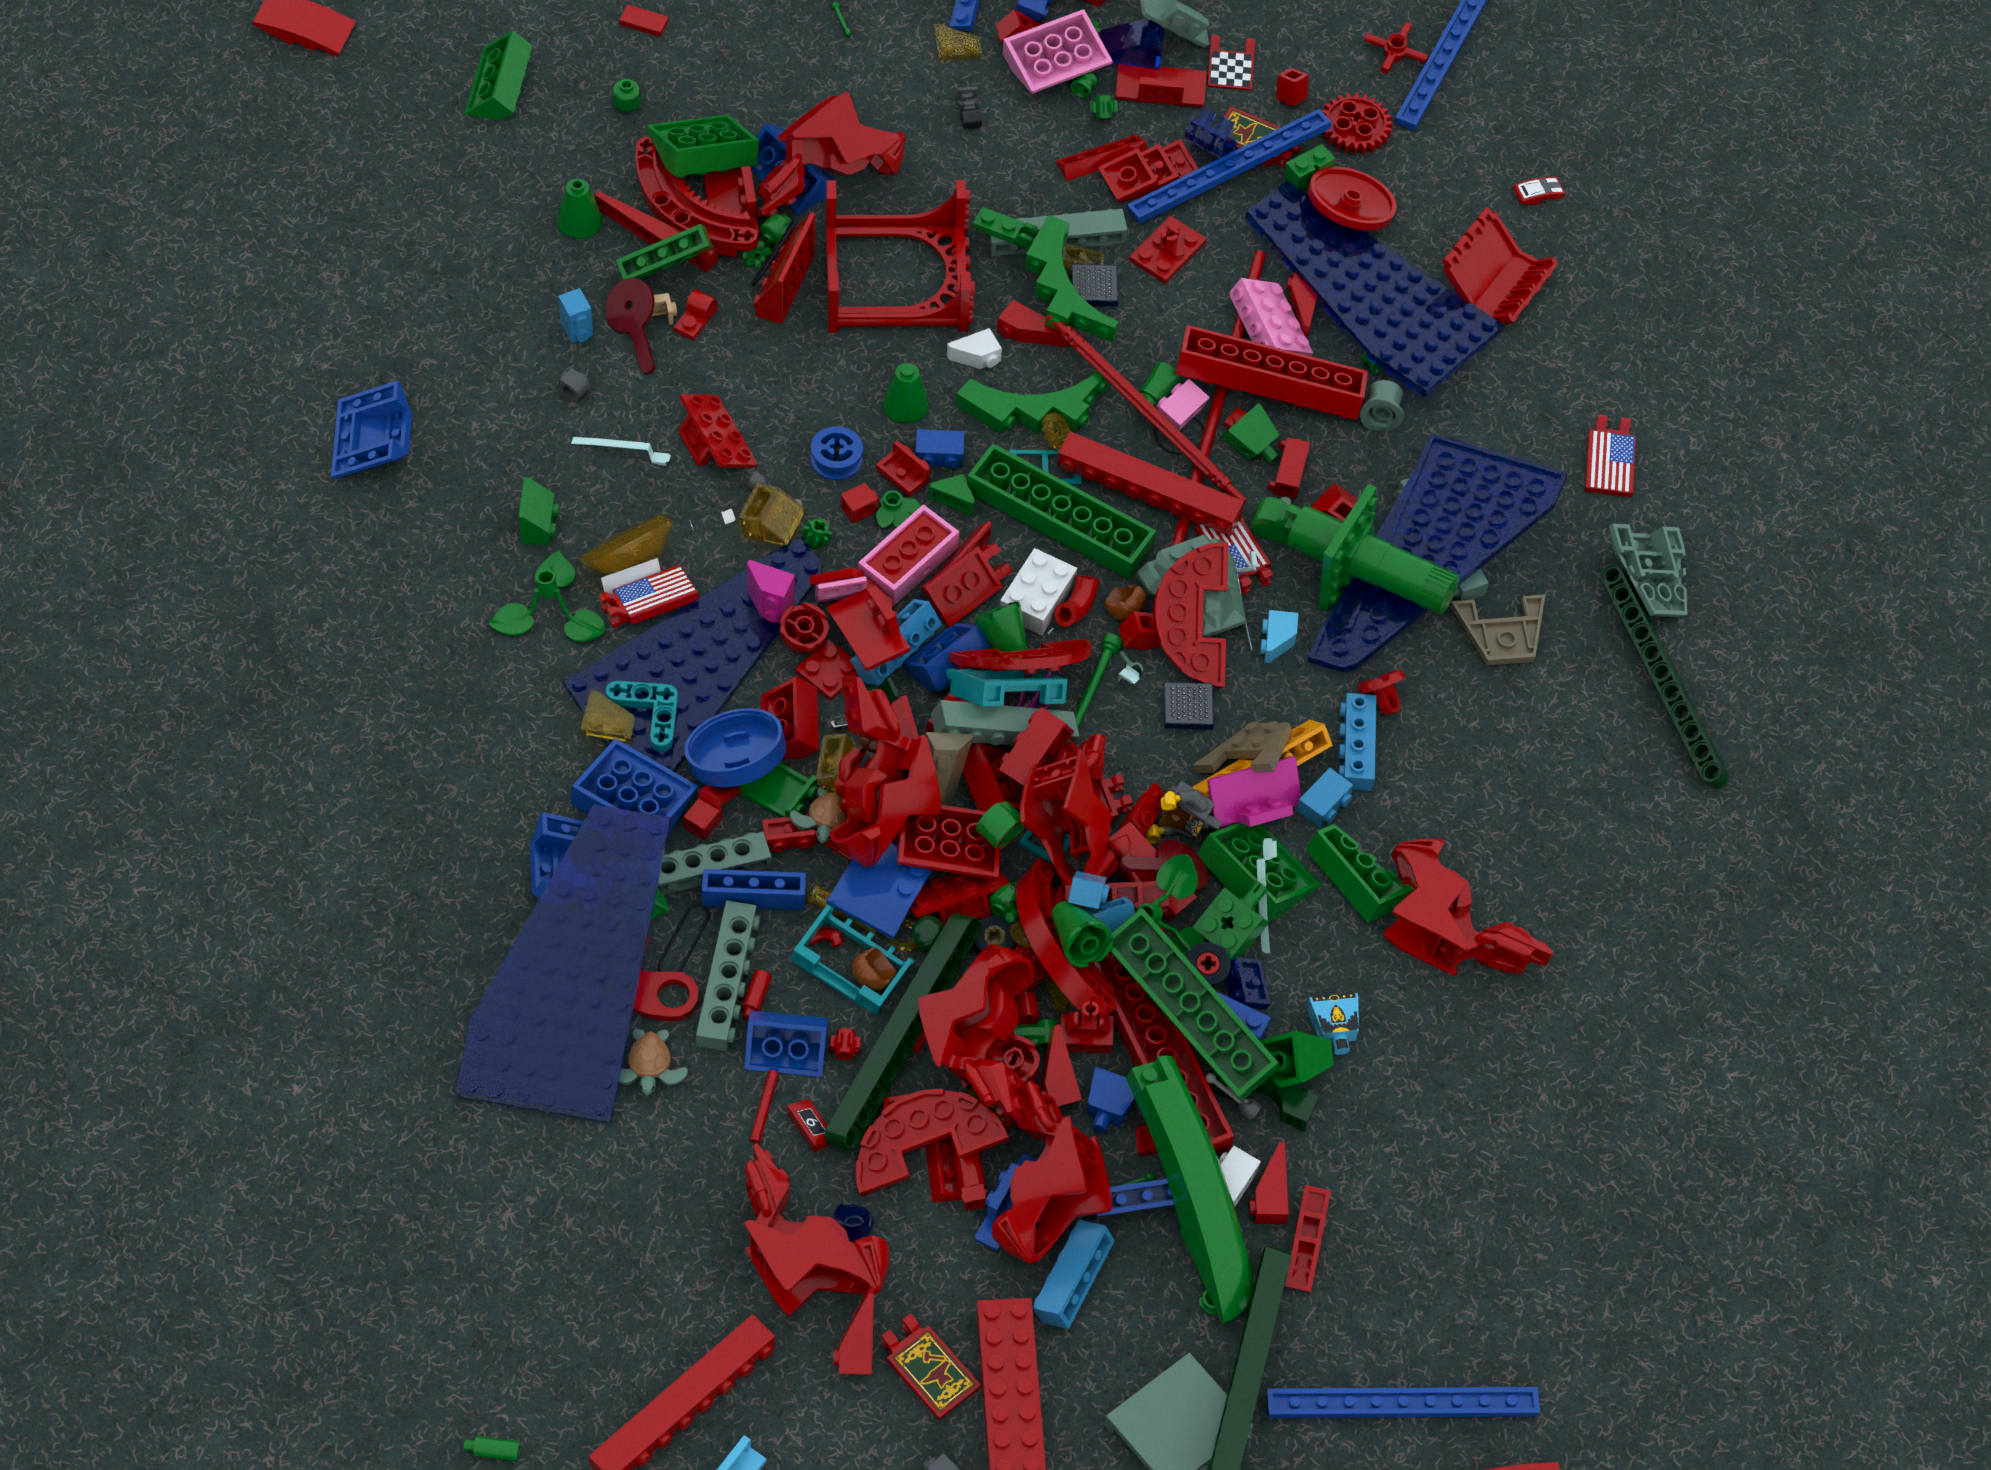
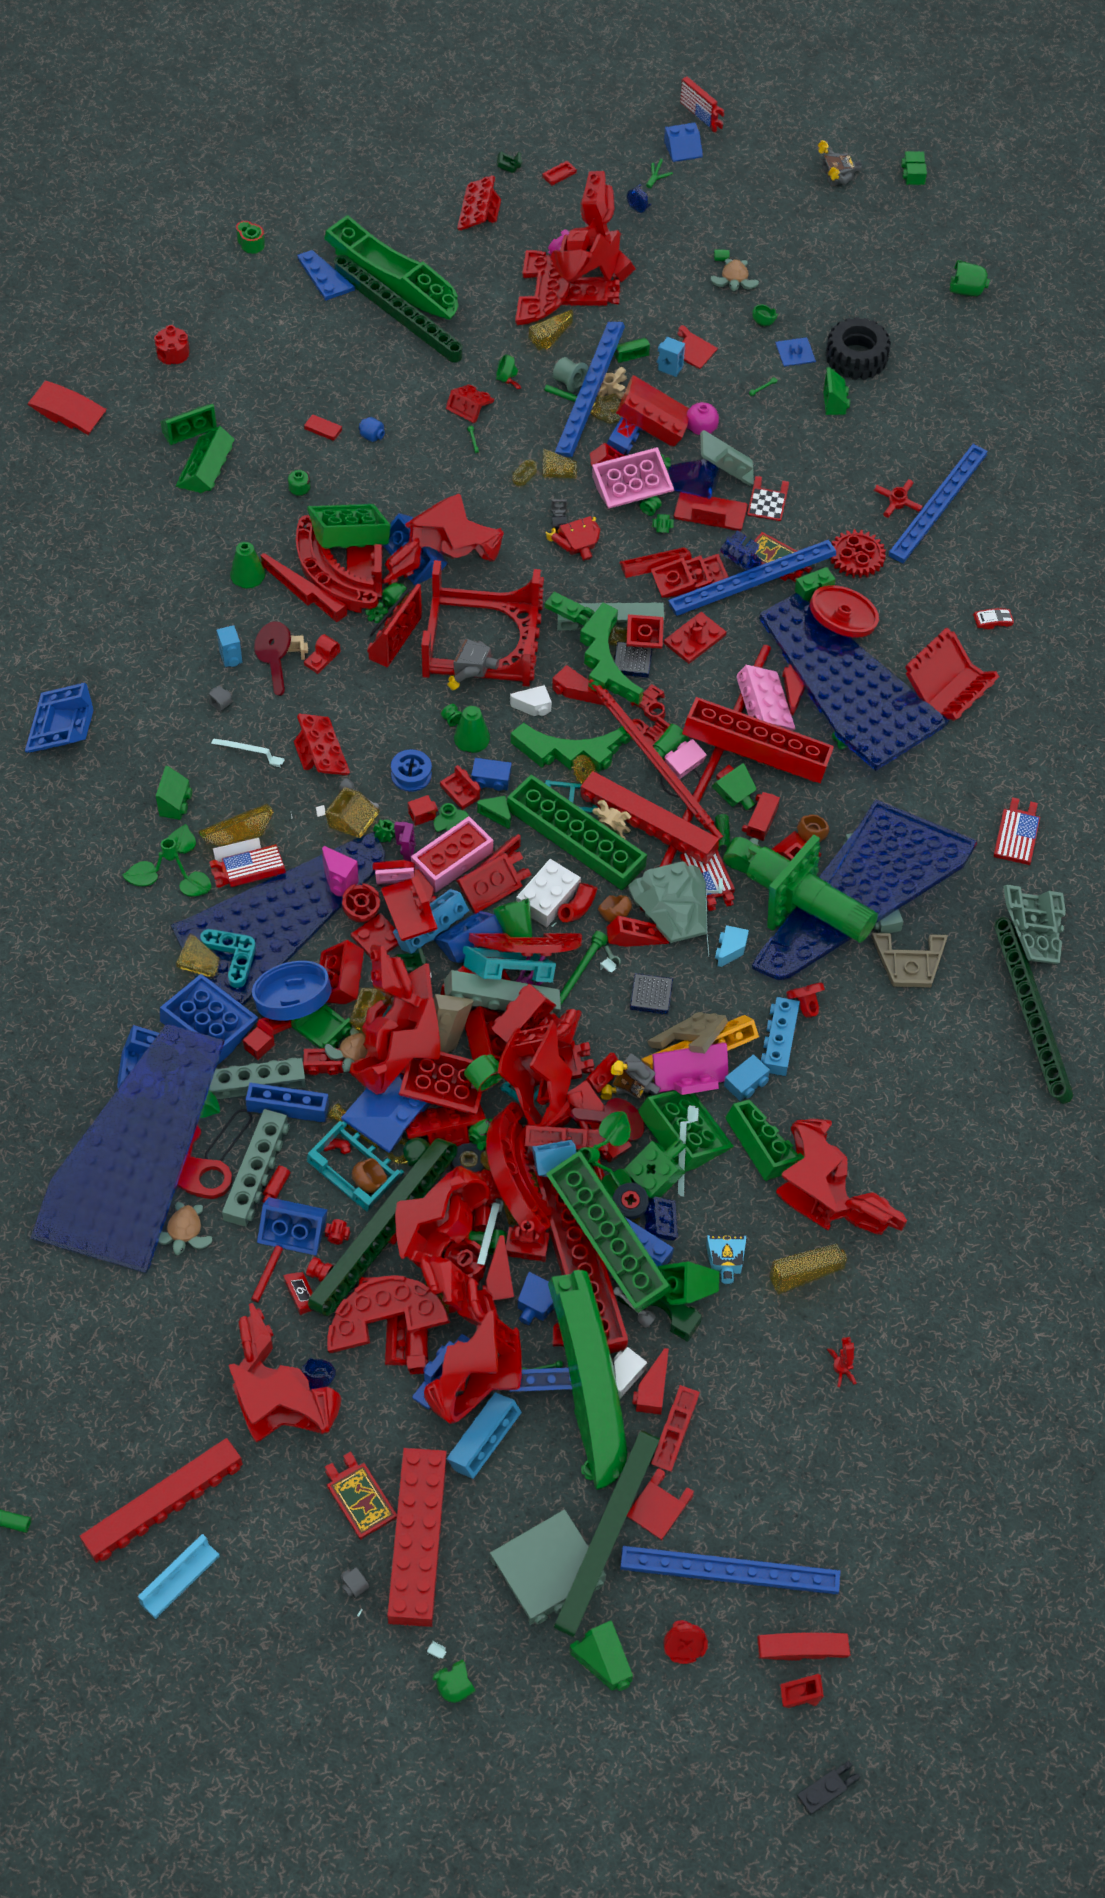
camera: 10 degrees right, 0 degrees up
(469, 31) = (189, 424): none -> green slope
(665, 253) = (305, 605): green brick -> none
(708, 17) = (371, 429): none -> blue head
(830, 1093) = (318, 1269): none -> red wheel
(845, 539) = (406, 838): none -> magenta bracket
(857, 1340) = (303, 1473): red slope -> none
(876, 377) = (451, 714): none -> green wheel
(893, 307) = (472, 661): none -> dark grey torso
(919, 59) = (522, 470): none -> clear yellow beam
(997, 134) = (577, 536): none -> red torso
(1040, 994) = (496, 1207): none -> light aqua piece
(1081, 934) = (528, 1166): green cone -> none
(1088, 890) = (541, 1131): dark azure brick -> none
(1104, 488) = (612, 818): none -> tan pin
(1106, 247) = (645, 631): none -> red slope
(1126, 326) = (649, 699): none -> red piece
(1137, 375) = (654, 733): none -> red piece
(1180, 613) = (654, 920): red plate -> none
(1247, 489) = (723, 824): none -> green piece
(1292, 87) = (811, 521): red brick -> none
(1301, 1339) = (658, 1509): none -> red flag
(1355, 476) = (812, 825): none -> dark orange hair
(1383, 407) = (841, 776): sand green piece -> none
(1436, 1023) = (806, 1267): none -> clear yellow slope
(1504, 1131) = (845, 1361): none -> red piece

